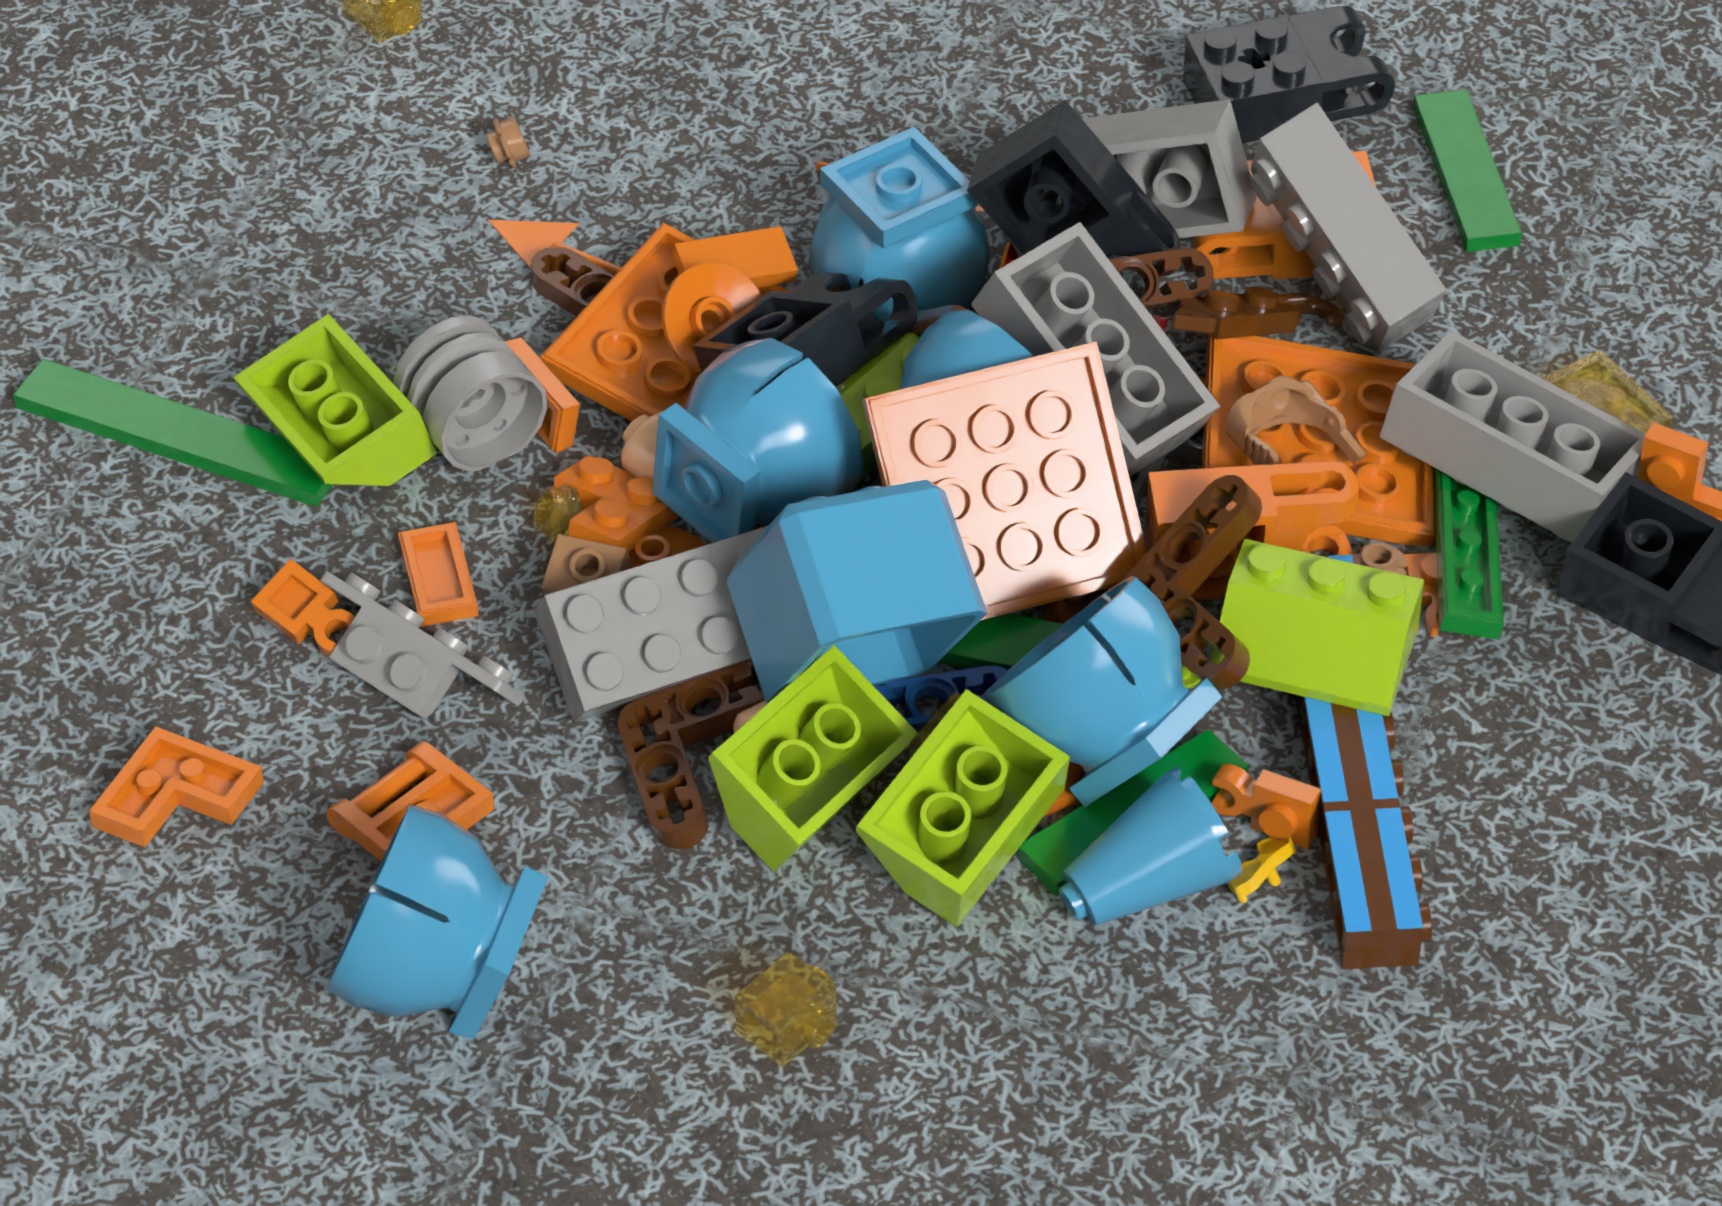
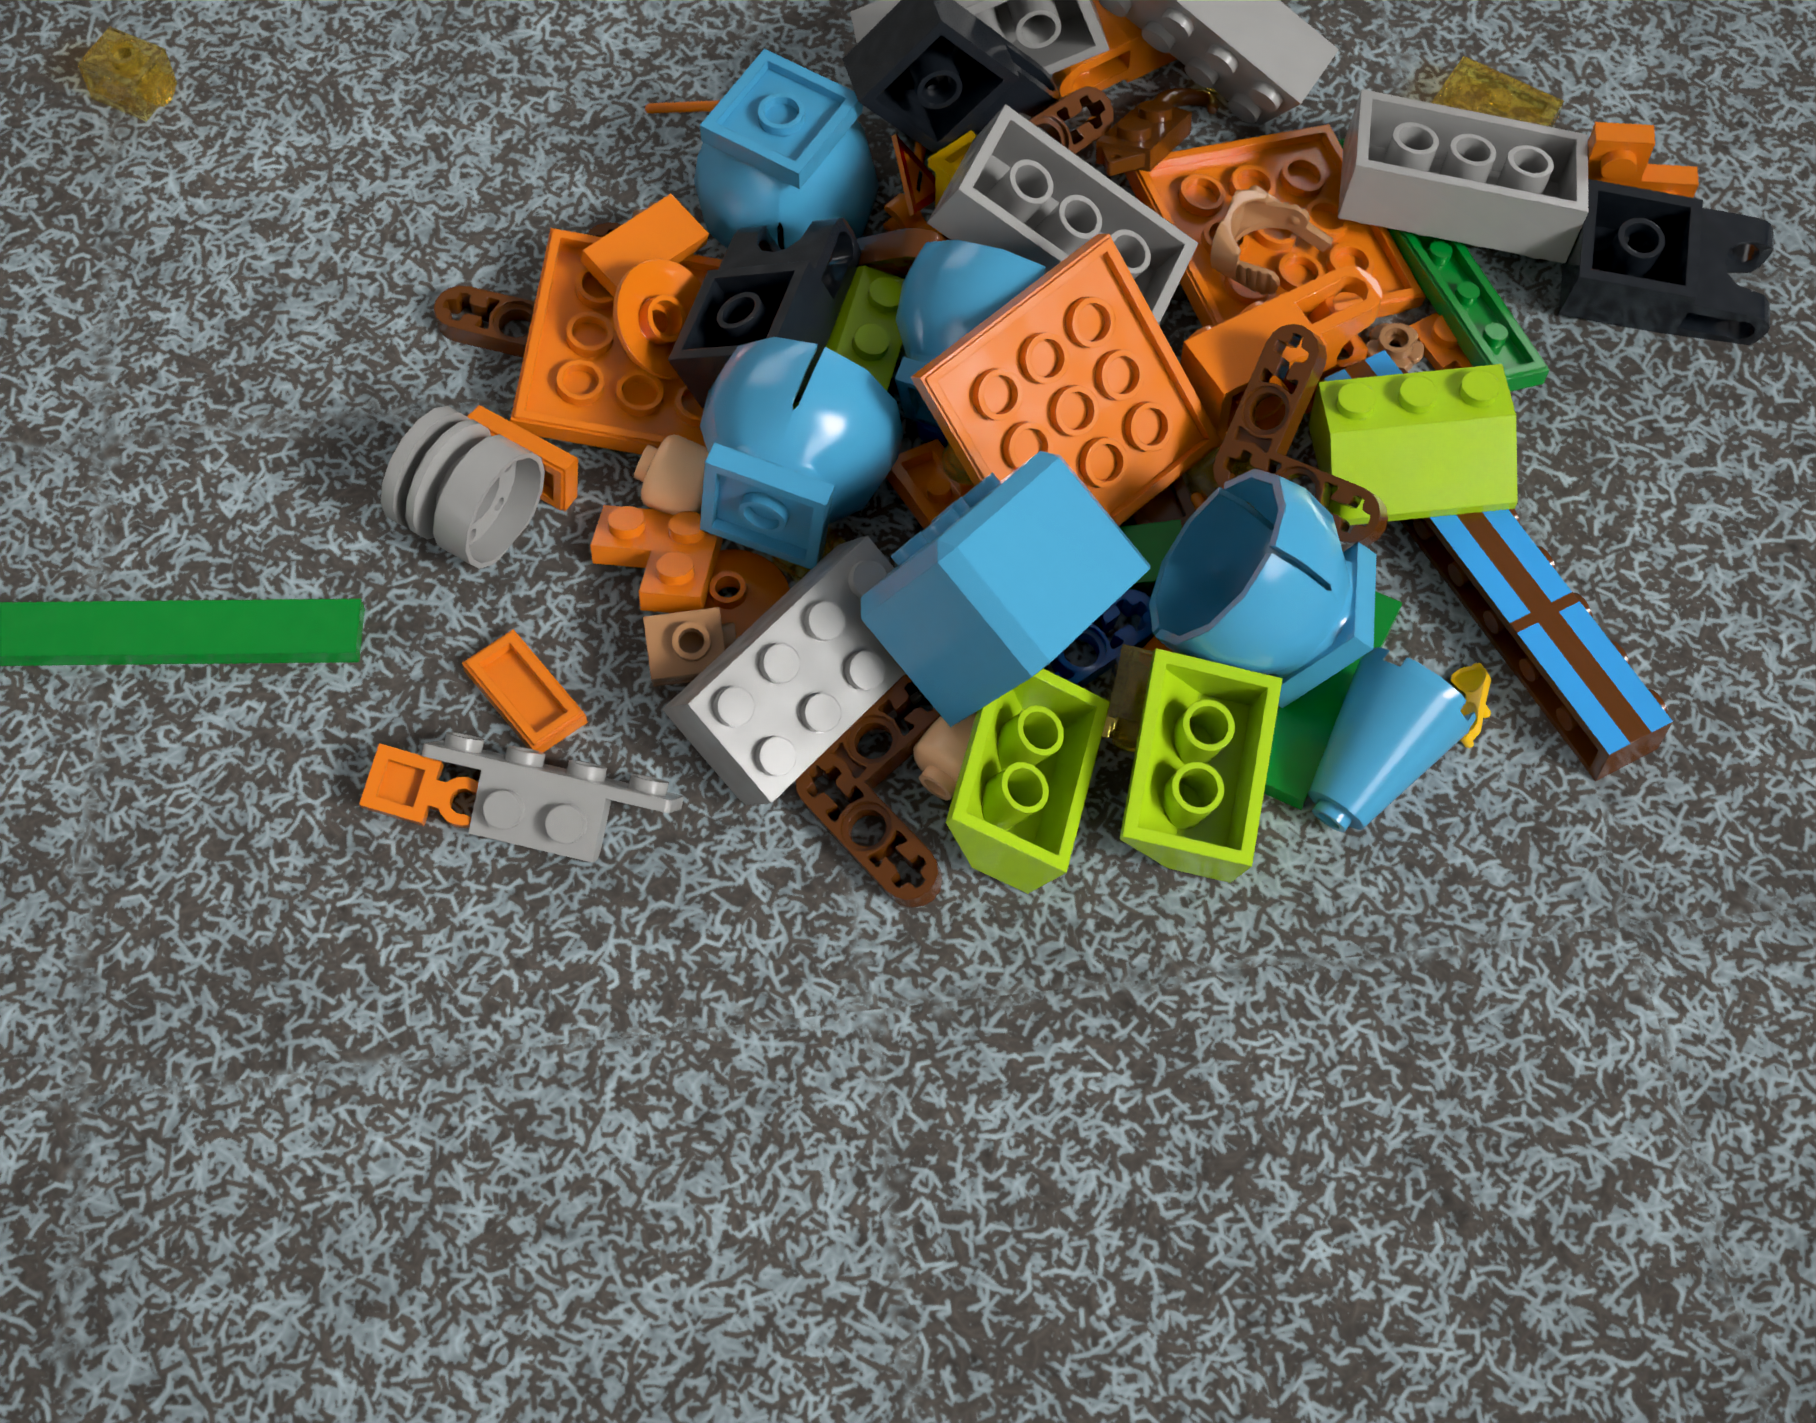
camera: 25 degrees left, 15 degrees up
(172, 773) = (377, 1036): orange plate -> none
(338, 408) = (333, 552): lime slope -> none
(435, 926) = (764, 1122): dark azure plate -> none
(444, 790) = (662, 983): orange plate -> none
(508, 141) = (338, 187): medium nougat plate -> none
(532, 237) = (424, 280): orange piece -> none
(555, 510) = (612, 581): clear yellow plate -> none
(787, 1009) = (1140, 1050): clear yellow brick -> none
(1274, 803) = (1454, 638): orange plate -> none

